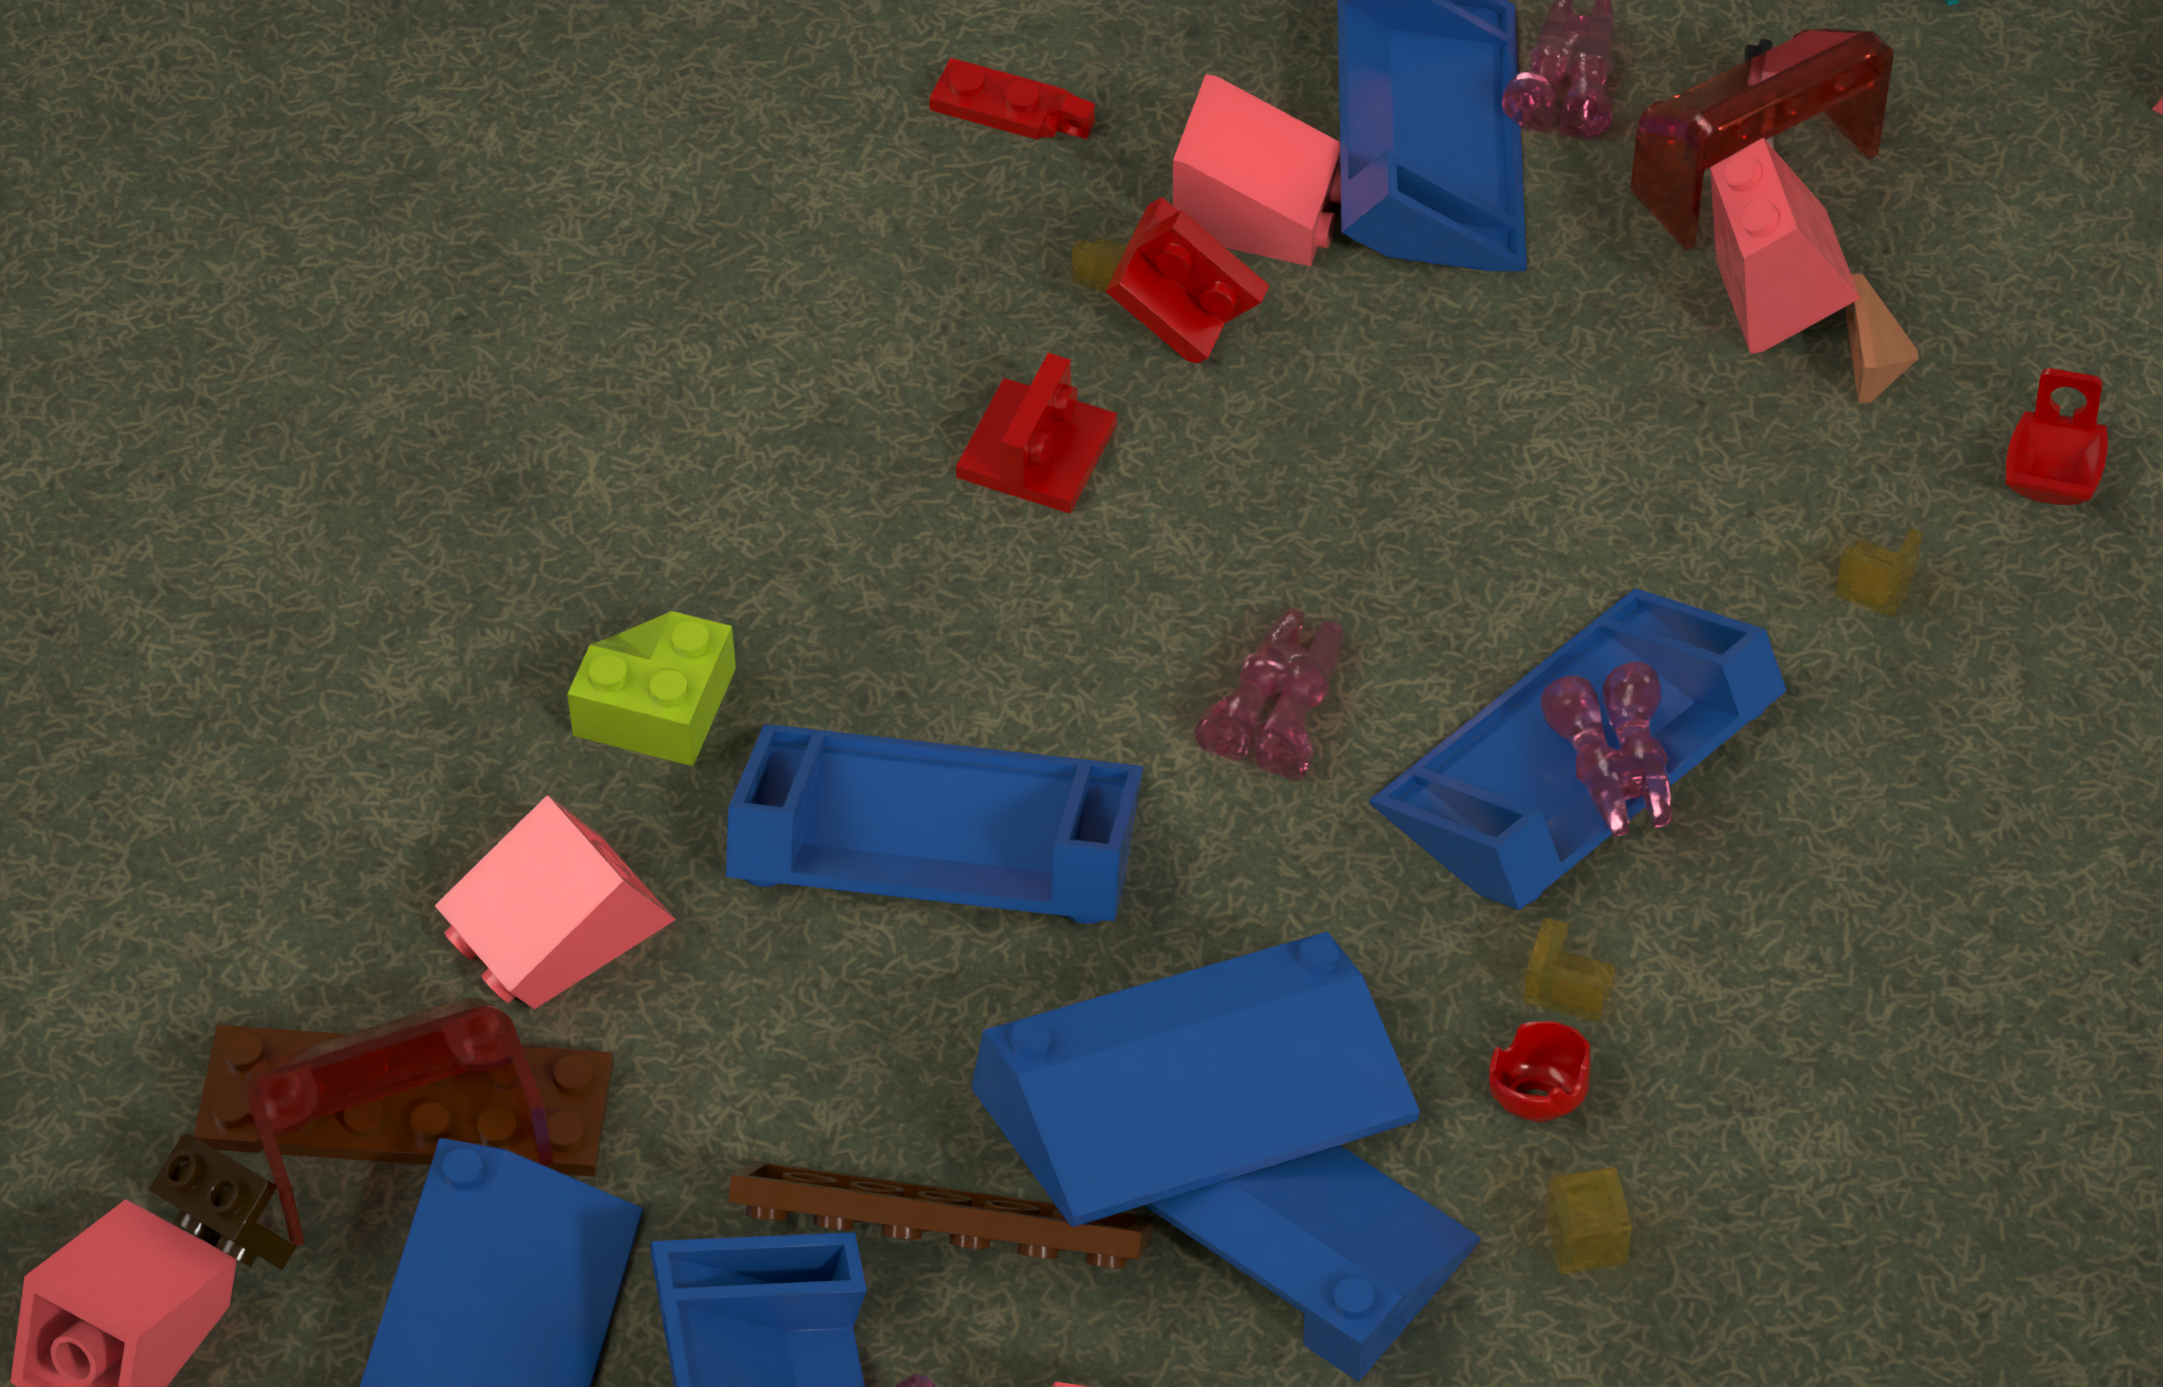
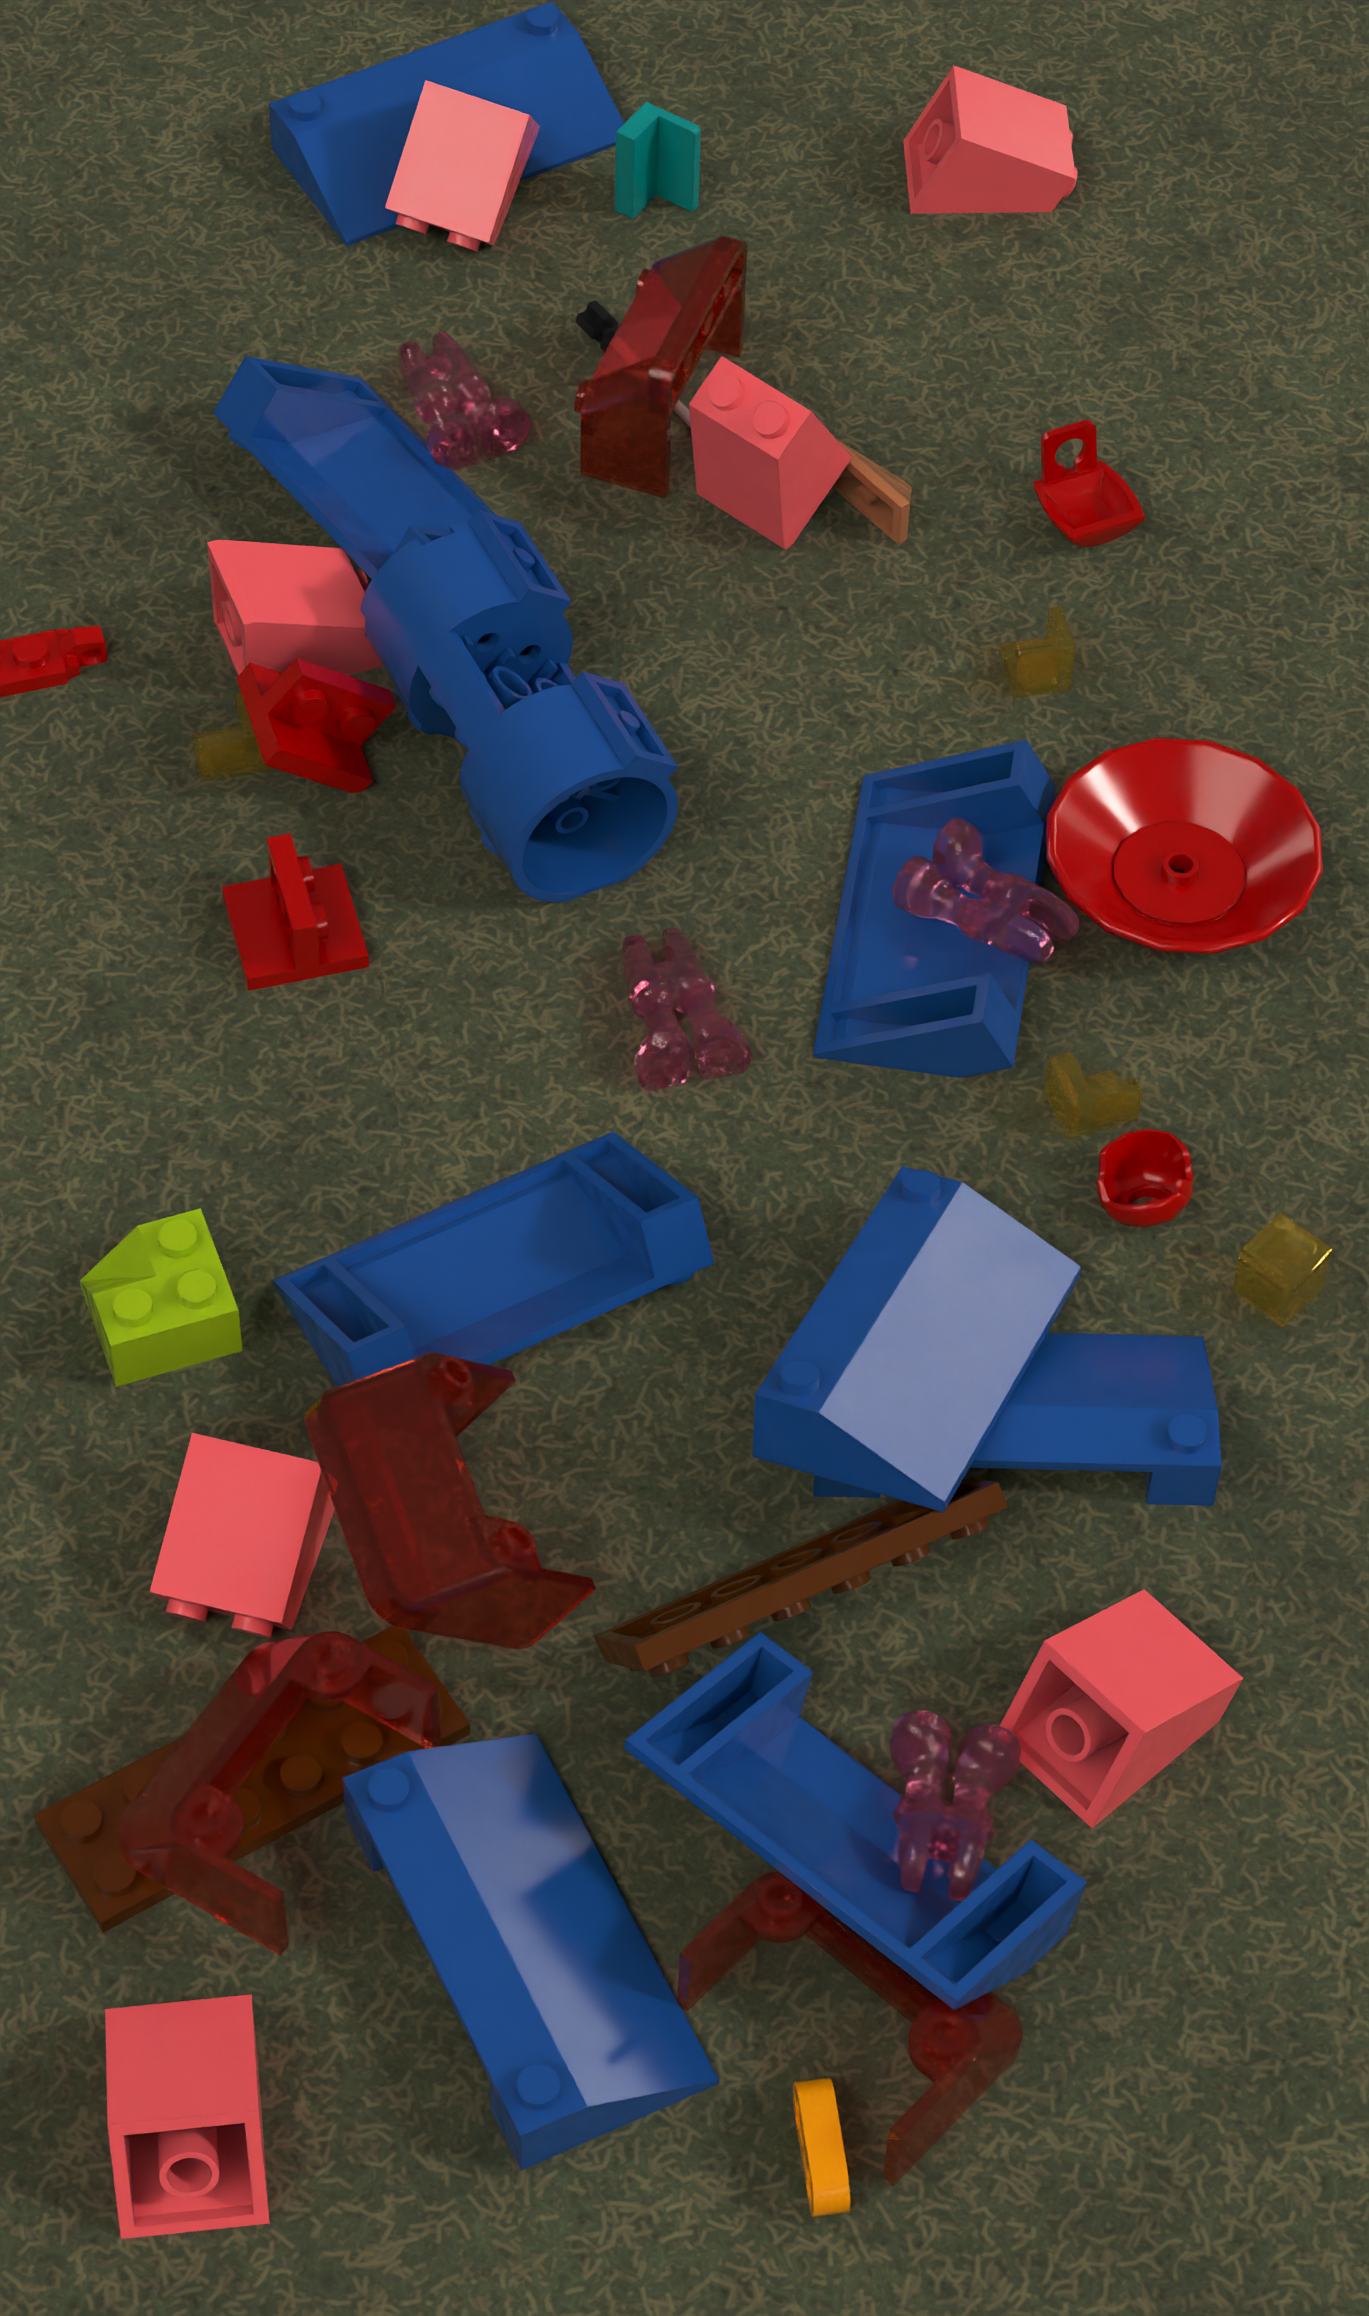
camera: 40 degrees left, 0 degrees up
(223, 1198) = (199, 1949): dark brown bracket -> none
(638, 977) = (415, 1515): none -> clear red windscreen
(1348, 360) = (554, 763): none -> blue cylinder
(1846, 757) = (1190, 808): none -> red dish

